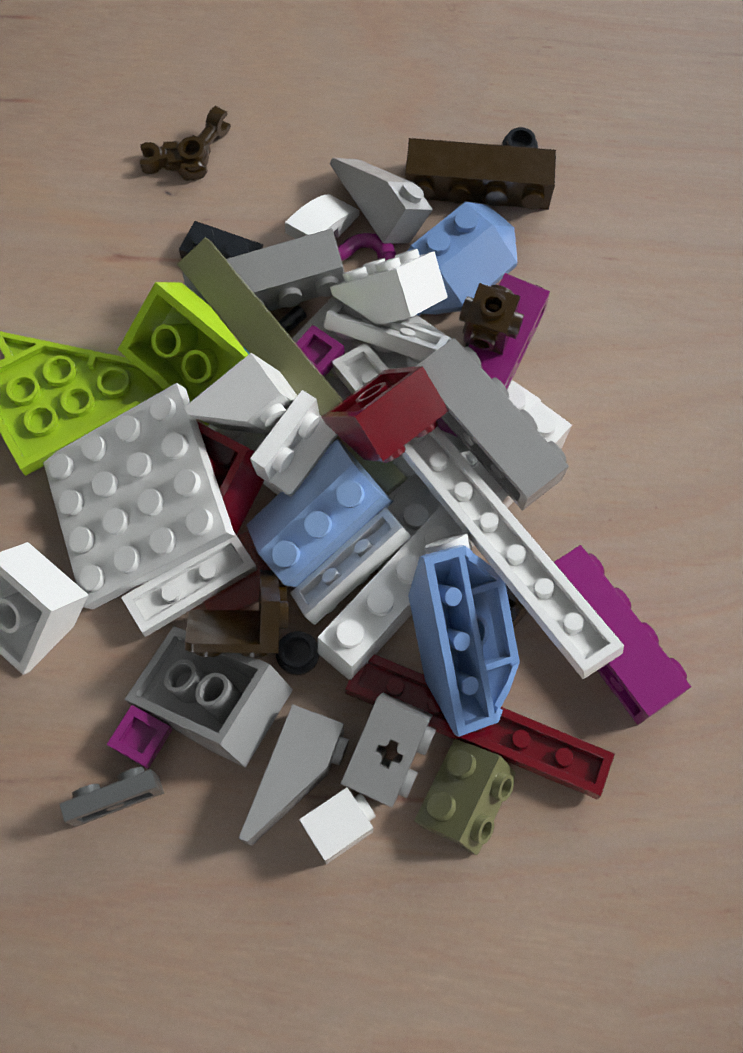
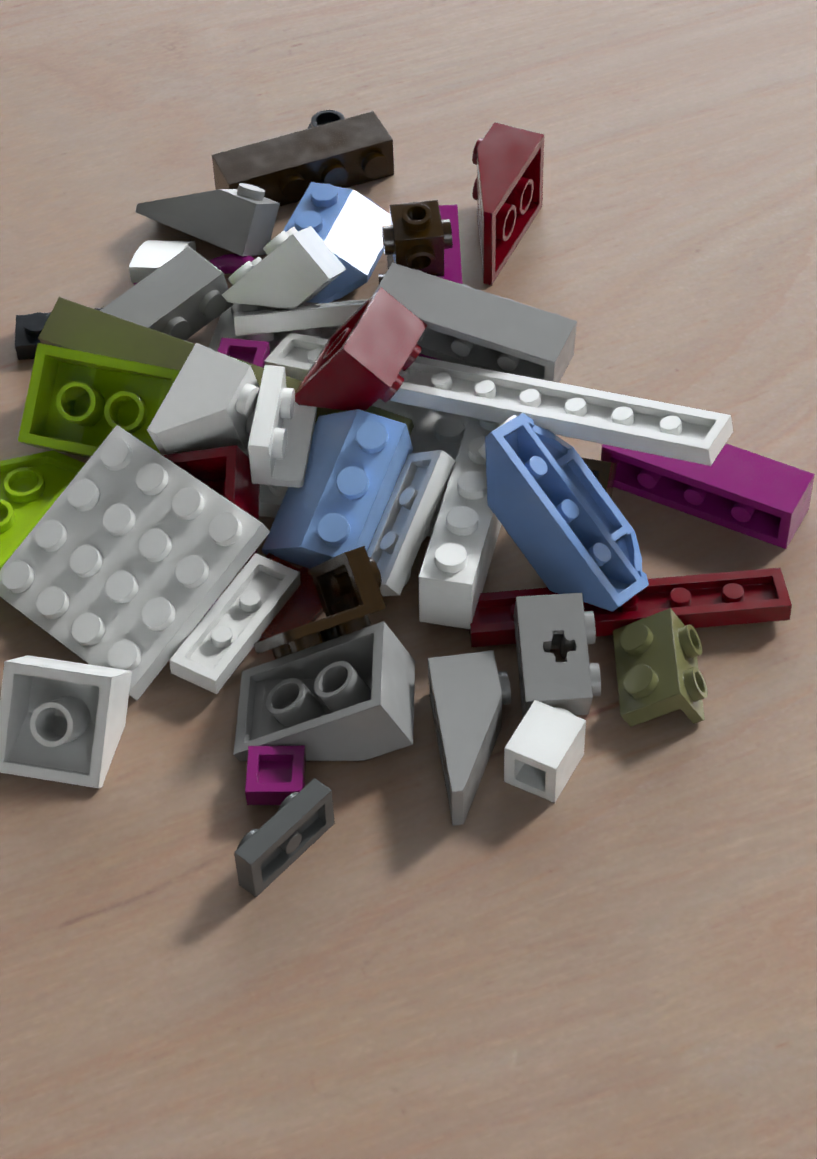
camera: 25 degrees left, 20 degrees down
(297, 653) = (403, 625): black plate -> none
(613, 280) = (506, 192): none -> dark red slope

